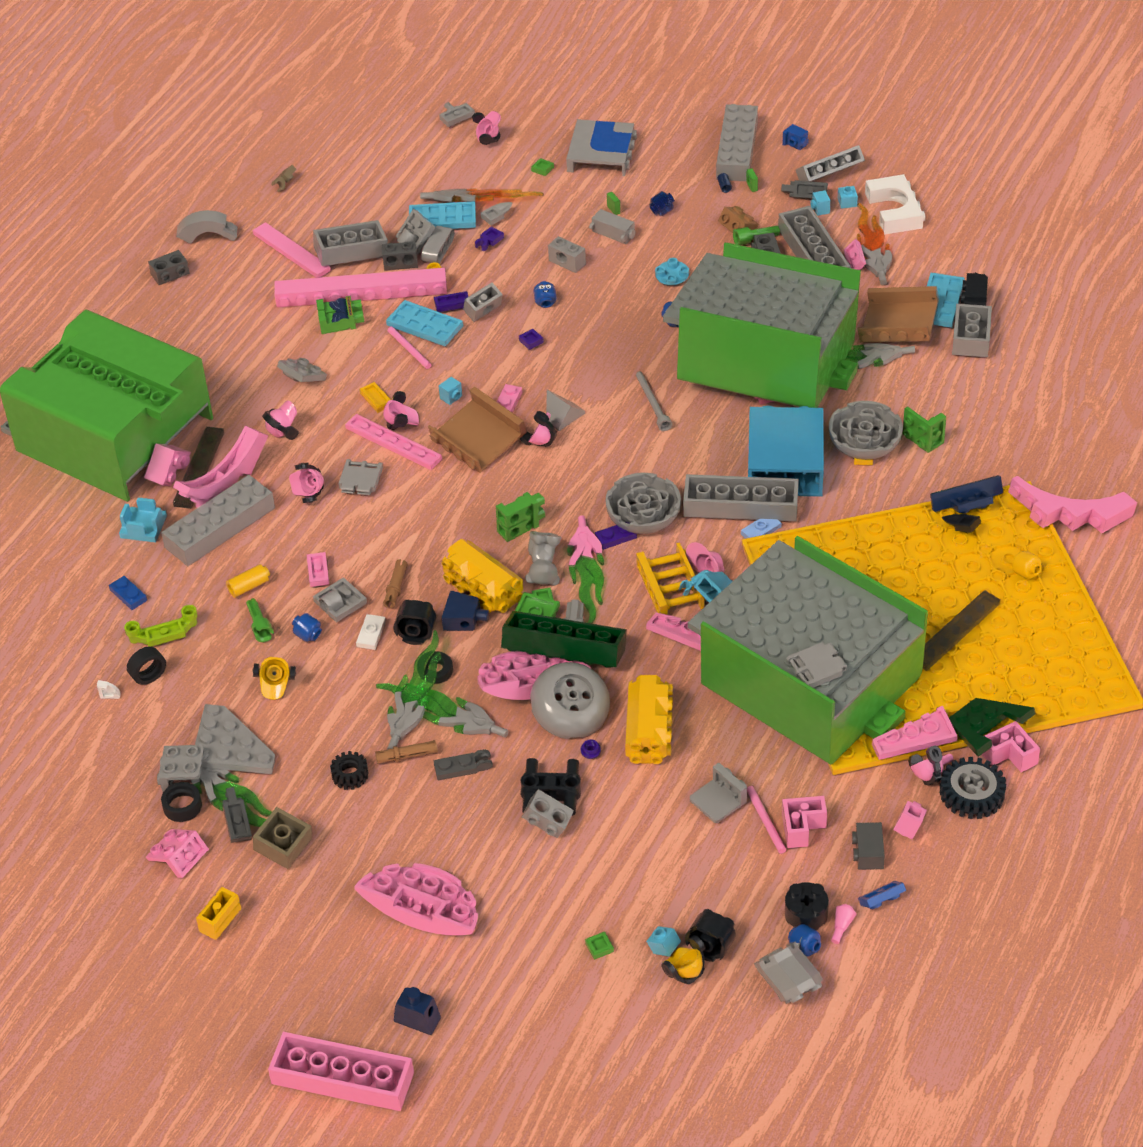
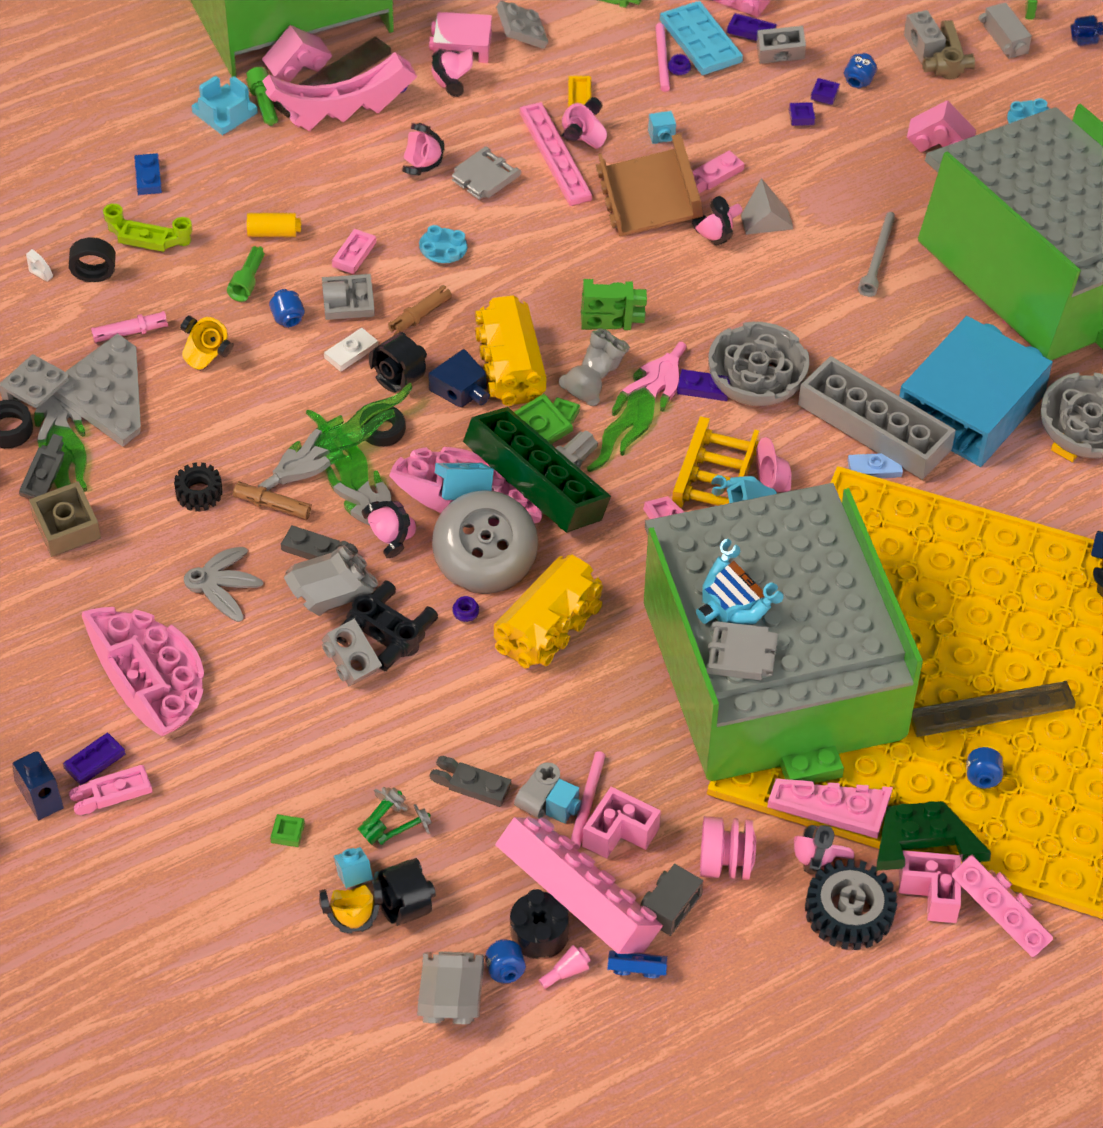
camera: 30 degrees right, 5 degrees up
(152, 491) = (257, 88): none -> bright green piece
(214, 690) = (129, 327): none -> bright pink pin
(218, 520) = (298, 143): light grey brick -> none
(265, 396) = (461, 33): none -> bright pink panel
(373, 535) = (443, 244): none -> medium azure dish
(413, 822) = (211, 578): none -> light grey plant
(425, 346) = (679, 64): none -> dark purple plate
(436, 975) = (94, 758): none -> dark purple plate
(465, 986) = (111, 790): none -> bright pink hinge
(495, 777) = (330, 580): none -> light grey brick
(500, 720) = (390, 524): none -> cap
(527, 667) = (464, 478): none -> medium azure panel
(533, 318) = (825, 91): none -> dark purple plate
(595, 259) = (951, 60): none -> dark tan piece
(629, 303) = (939, 126): none -> bright pink brick
(654, 911) = (392, 798): none -> green plant
(686, 849) = (471, 781): none -> dark grey hinge
(720, 795) = (557, 741): light grey bracket -> none
(735, 828) = (534, 793): none -> light grey piece
(755, 827) = (563, 801): none -> medium azure plate
(784, 634) = (732, 594): none -> torso
(813, 867) = (579, 885): none -> bright pink brick
(878, 796) = (727, 848): none -> bright pink wheel
(910, 819) = (742, 896): bright pink brick -> none
(983, 664) = (984, 767): none -> blue head
(1061, 736) = (1003, 904): none -> bright pink bracket

